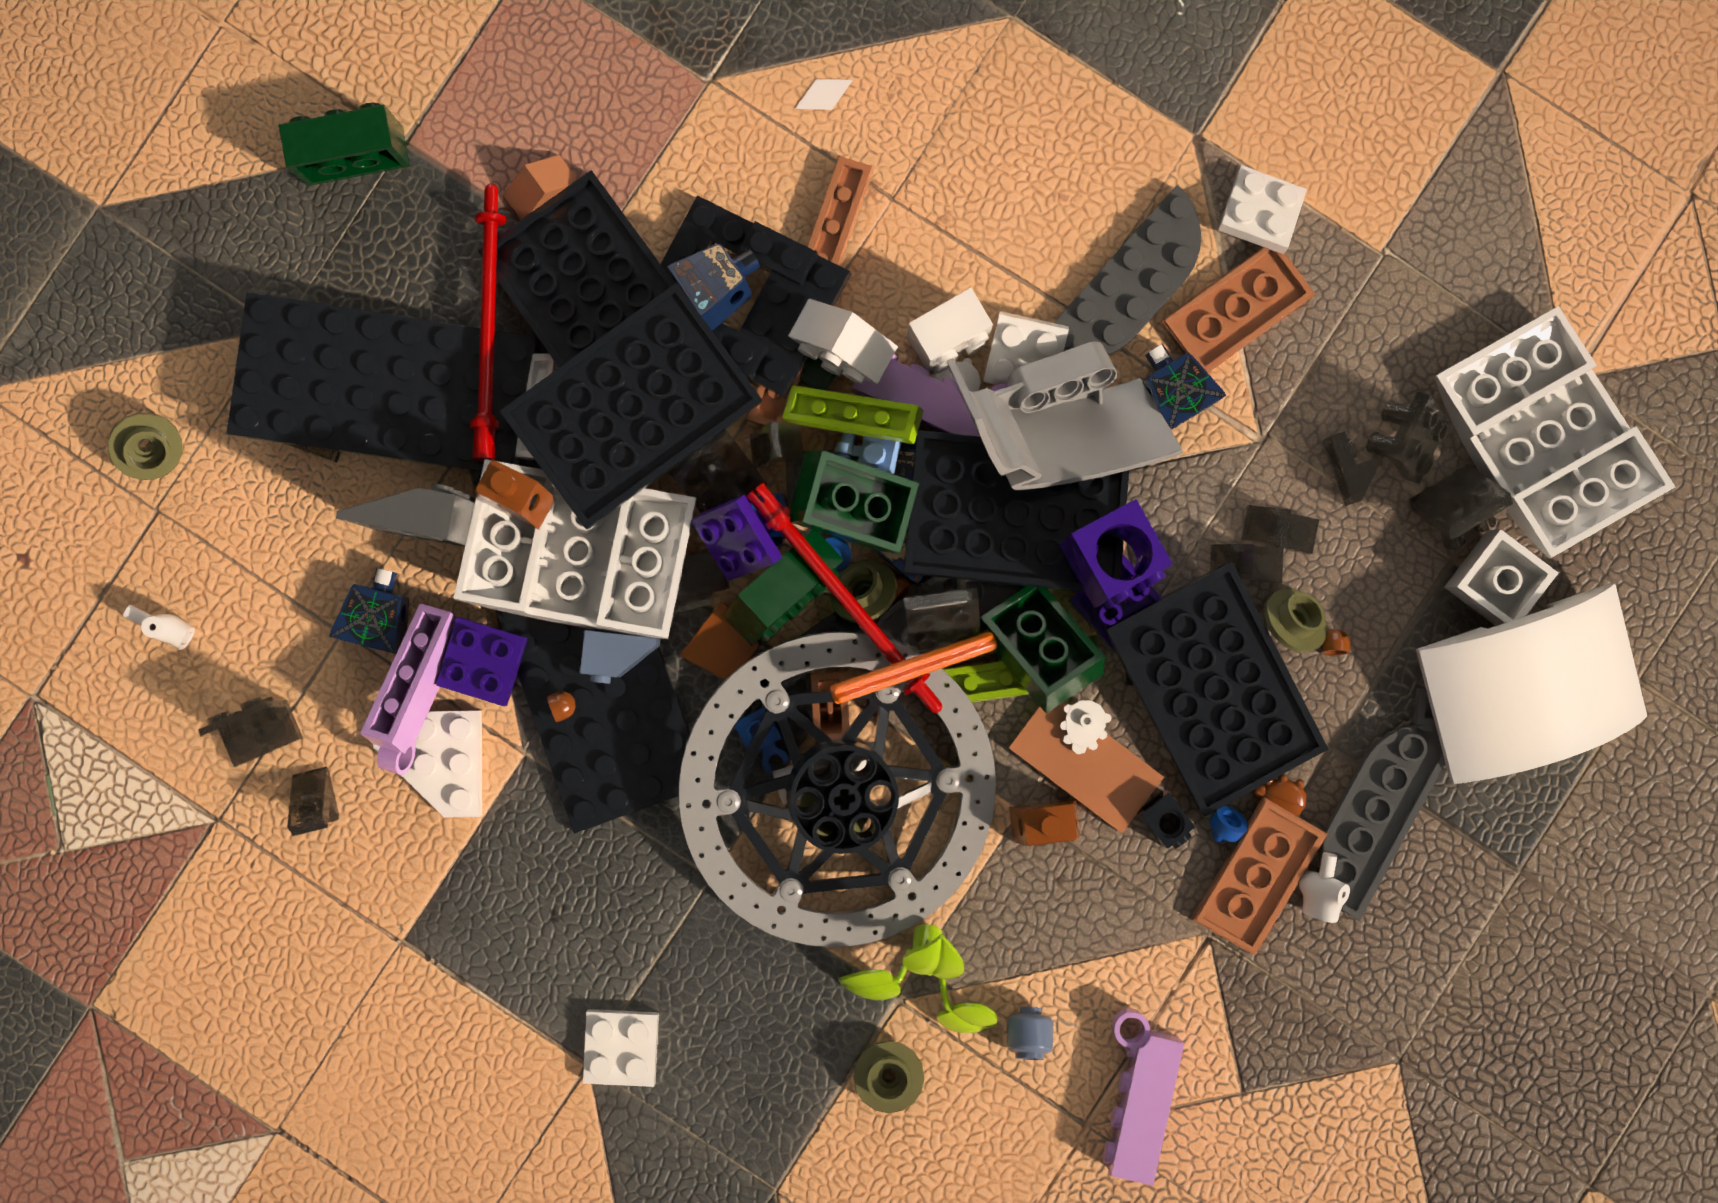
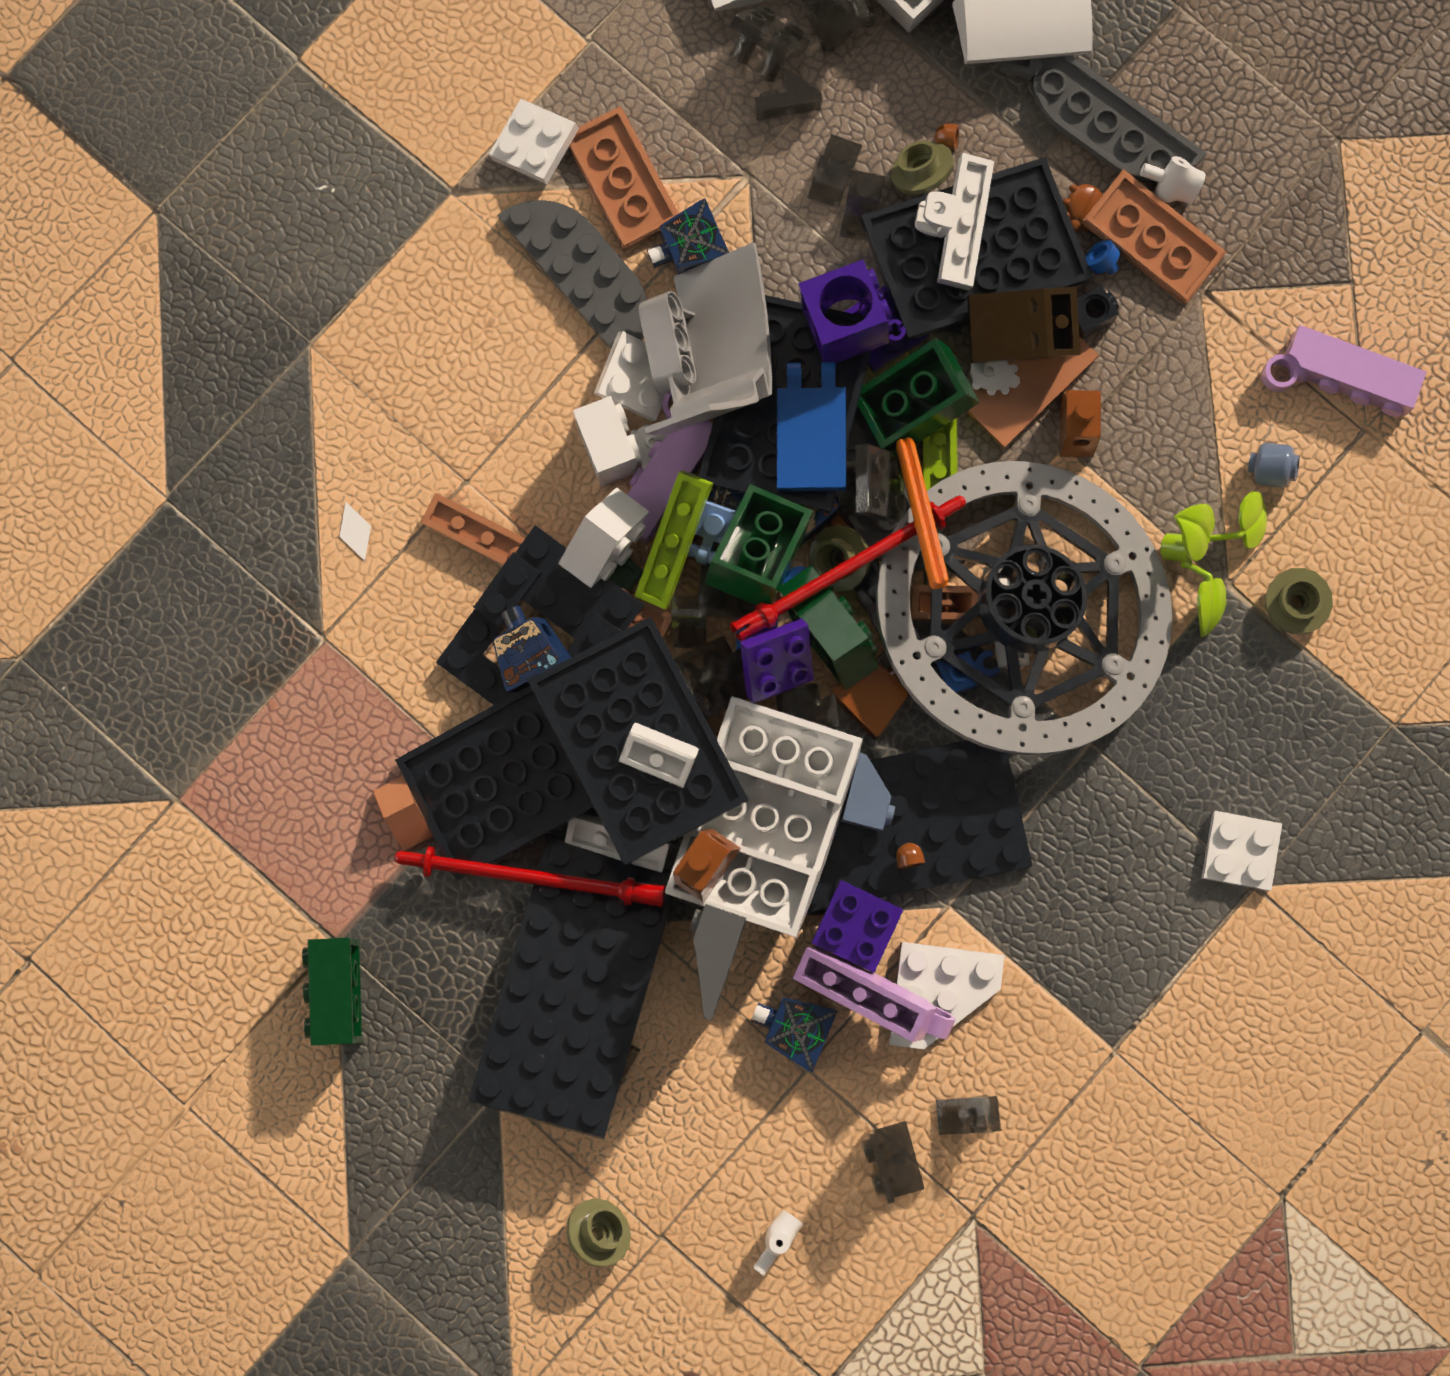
camera: 85 degrees left, 5 degrees down
(618, 429) = (658, 754): none -> white slope
(984, 540) = (811, 433): none -> blue tile
(1137, 749) = (1023, 325): none -> dark brown slope
(1241, 665) = (959, 219): none -> white plate

